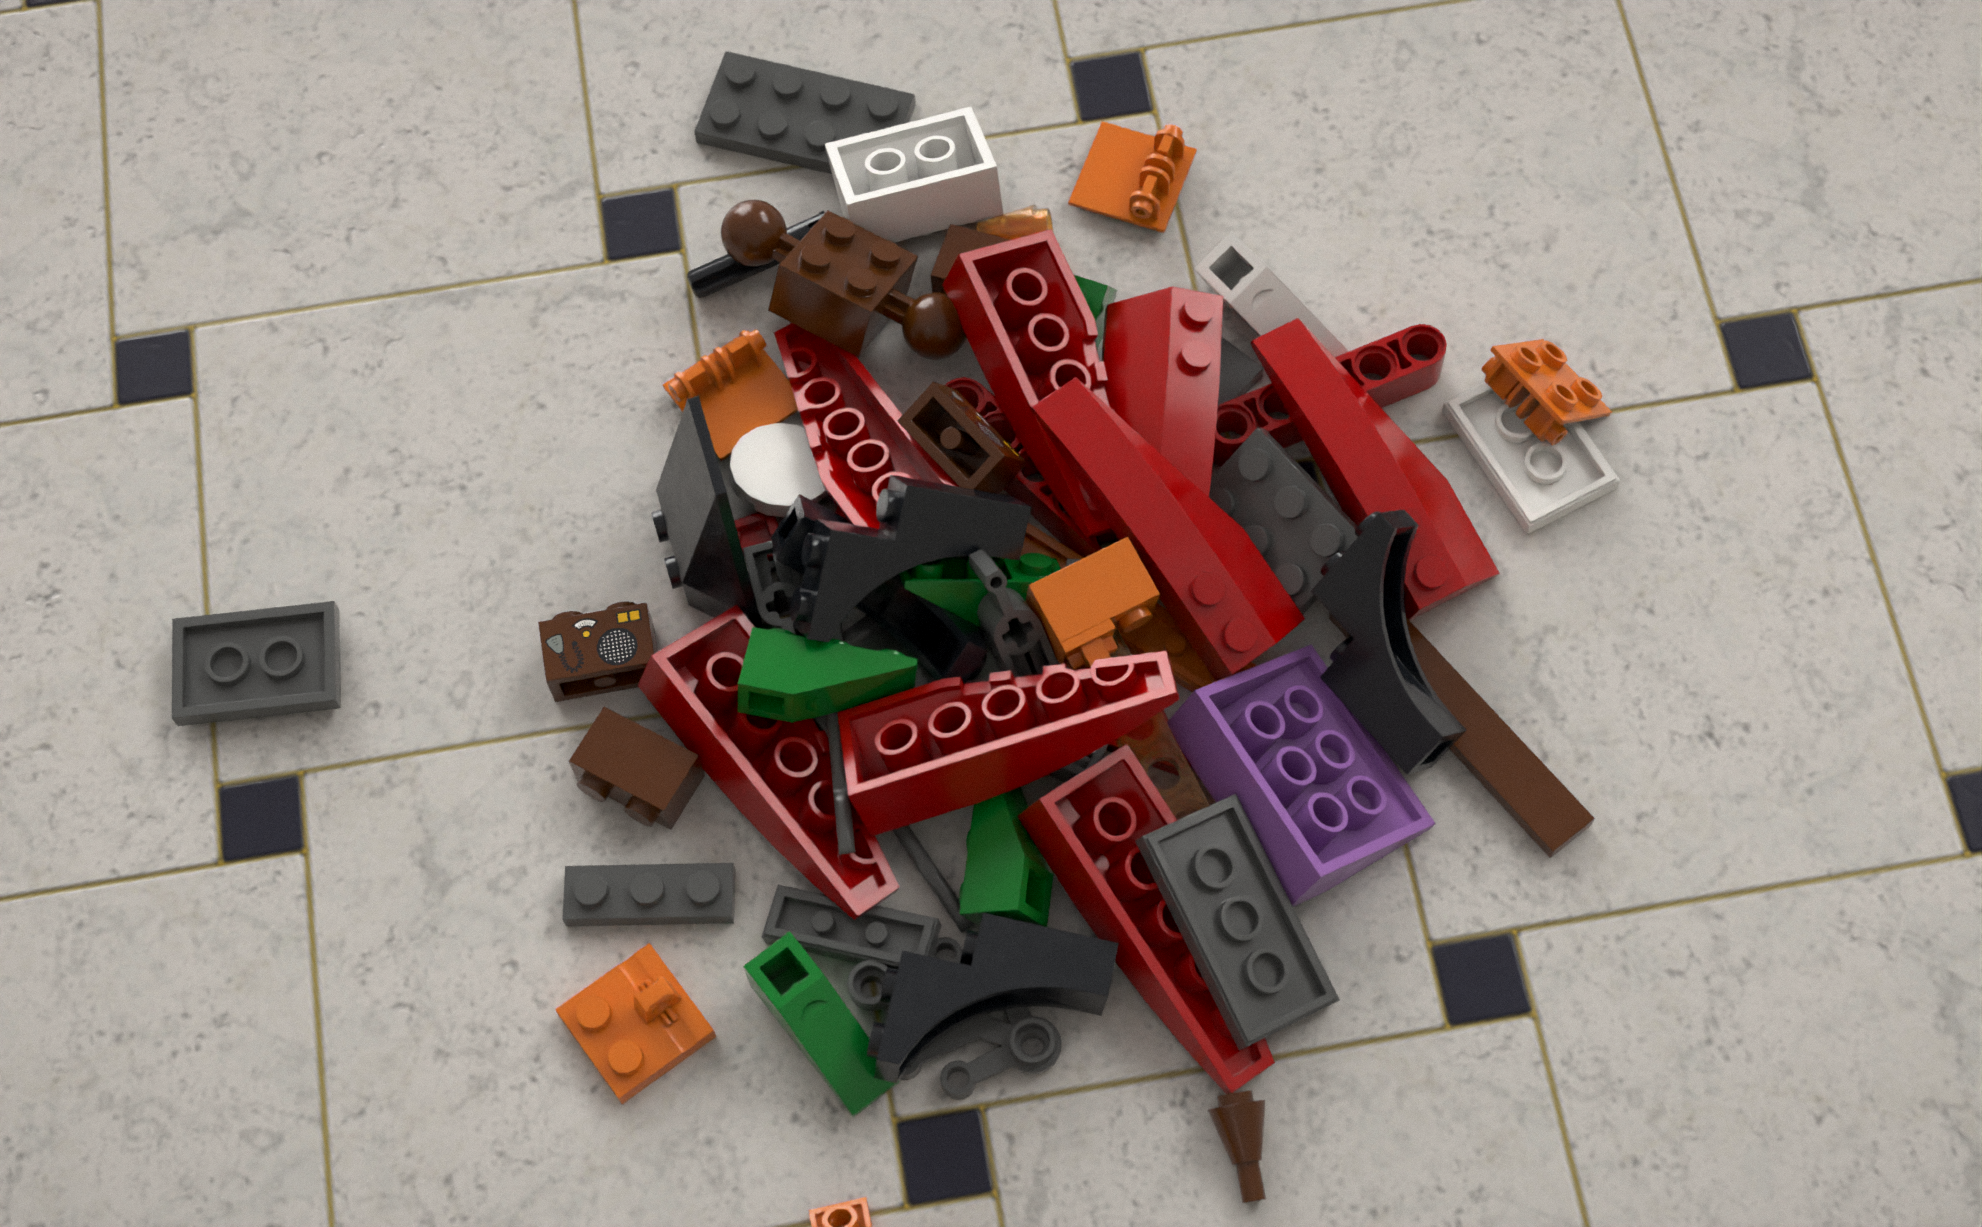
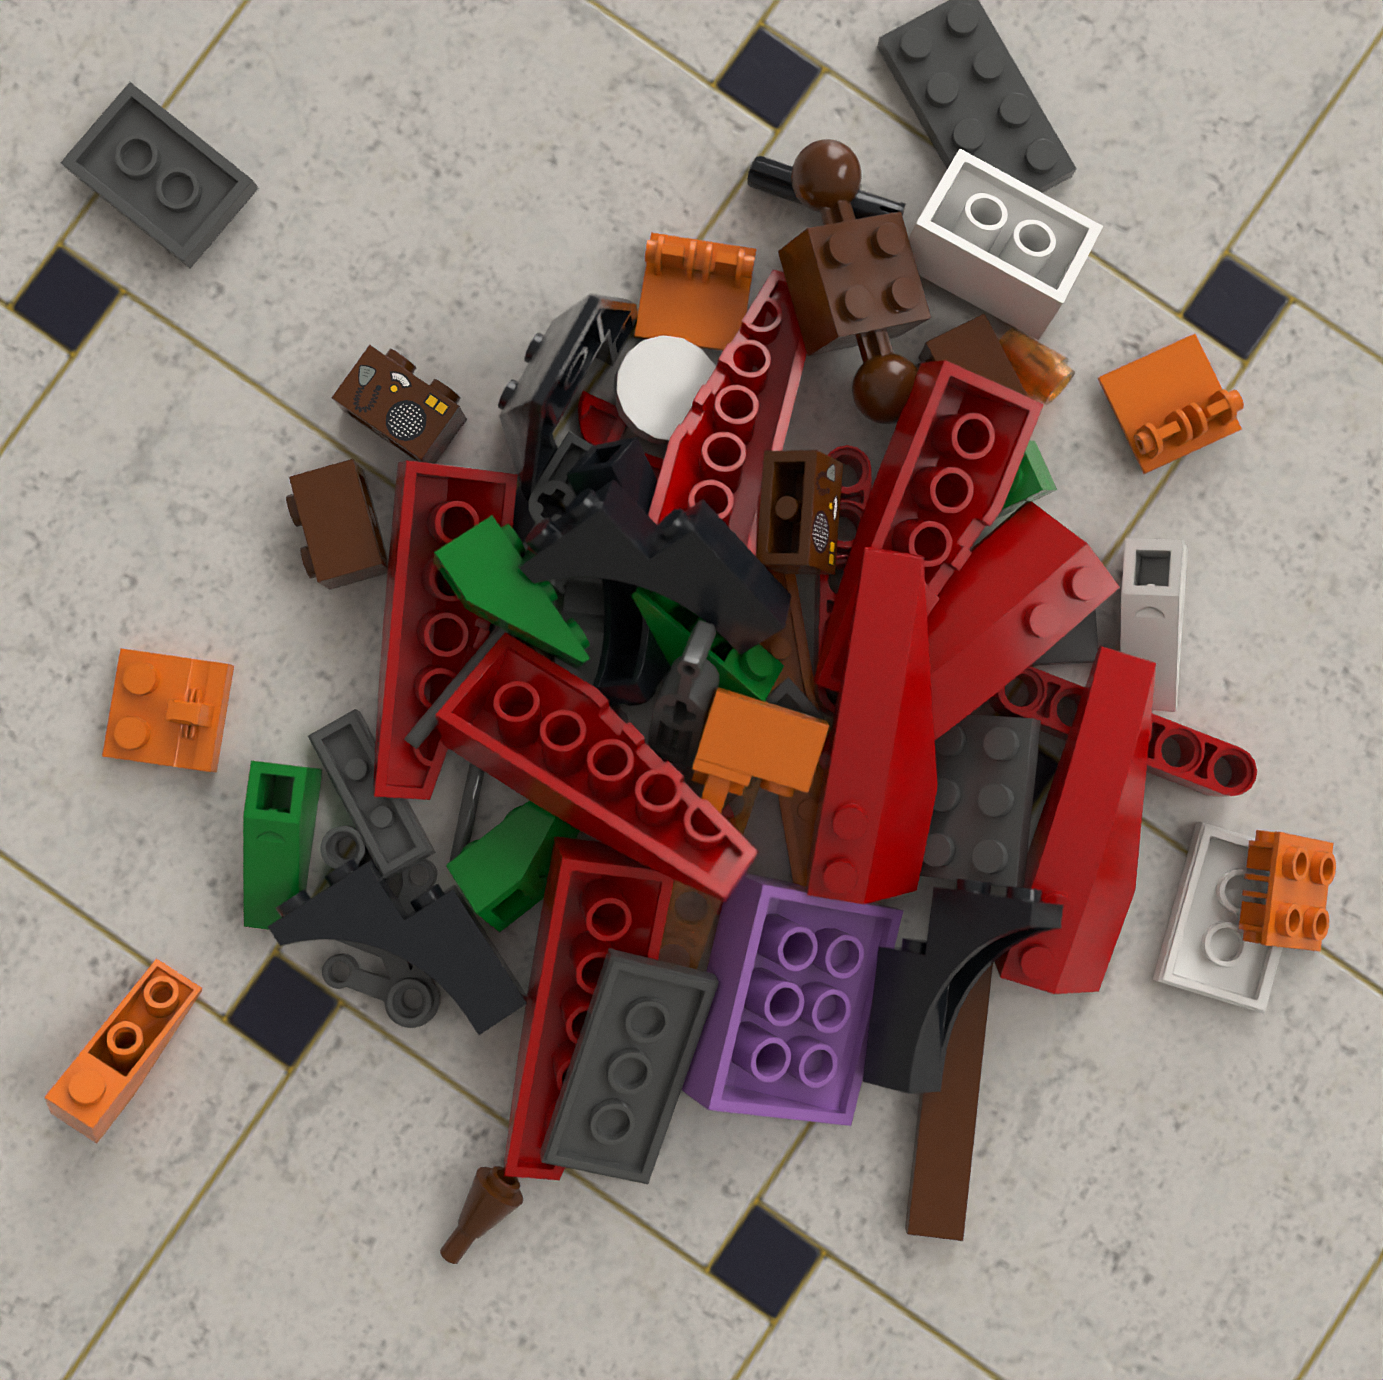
camera: 40 degrees right, 20 degrees up
(649, 894) = (265, 625): dark grey plate -> none

